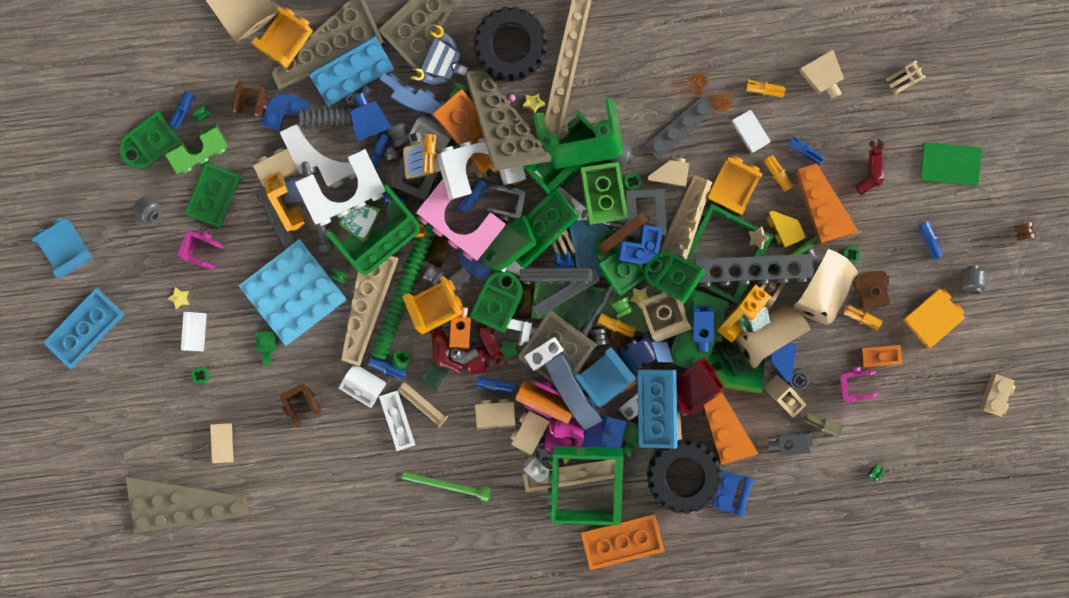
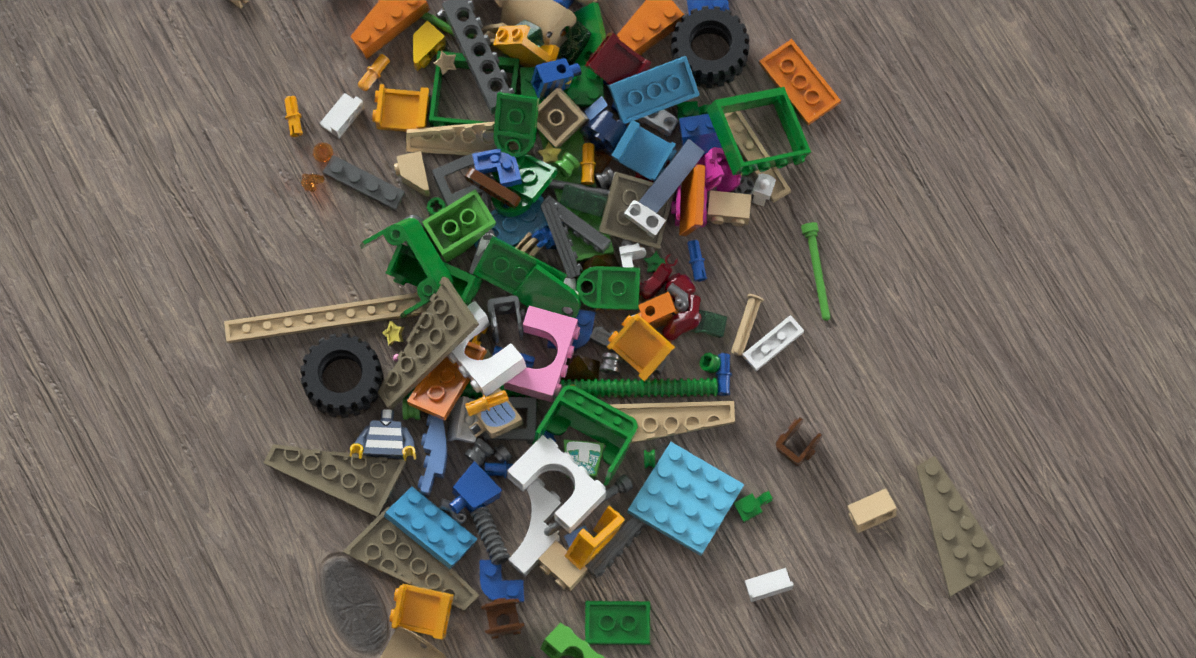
camera: 110 degrees left, 15 degrees down
(179, 298) = (740, 615): light yellow piece -> none
(188, 246) = (664, 611): dark pink piece -> none
(199, 369) = (805, 564): green bush -> none
(362, 385) = (752, 391): white panel -> none
(495, 415) = (726, 247): tan brick -> none
(805, 150) = (340, 56): blue axle -> none
(824, 74) = (257, 66): tan torso -> none

